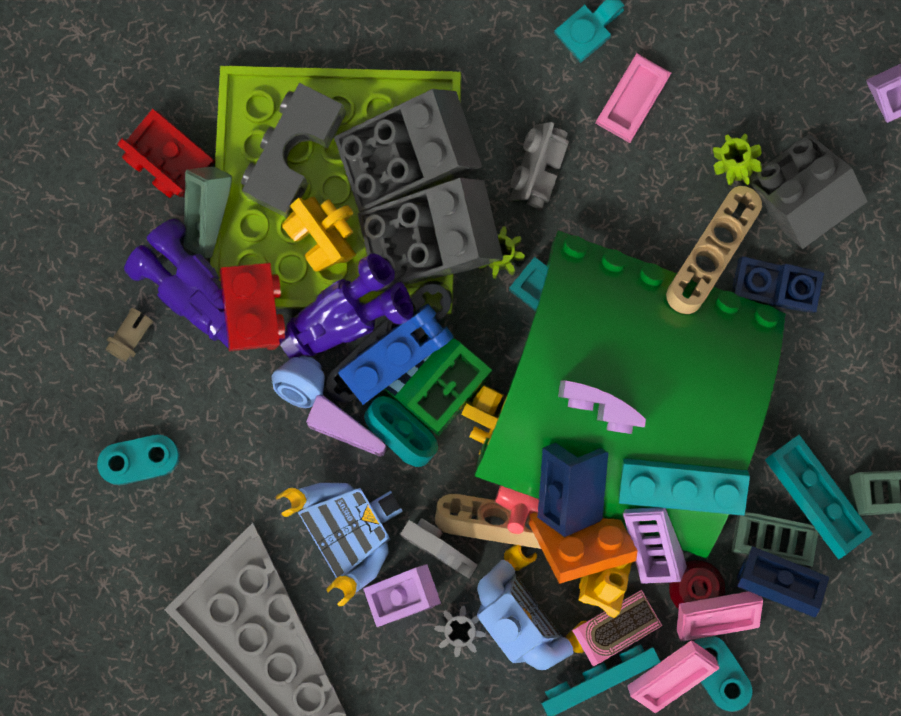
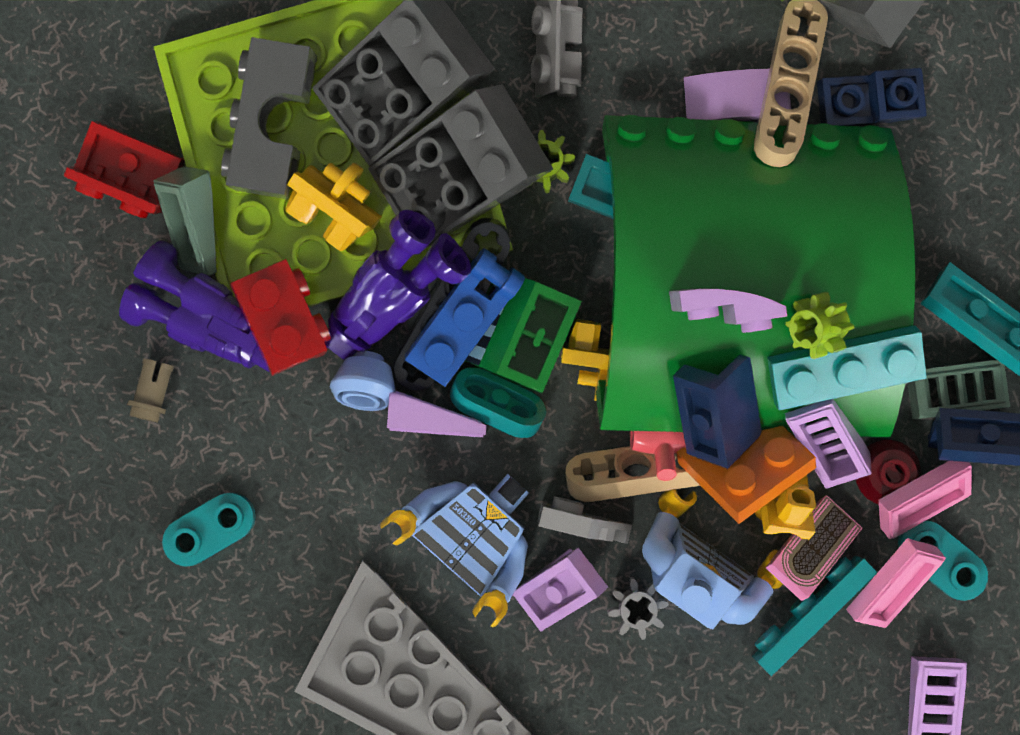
camera: 20 degrees left, 5 degrees up
(663, 246) = (729, 95): none -> lavender slope
(669, 444) = (819, 325): none -> lime gear

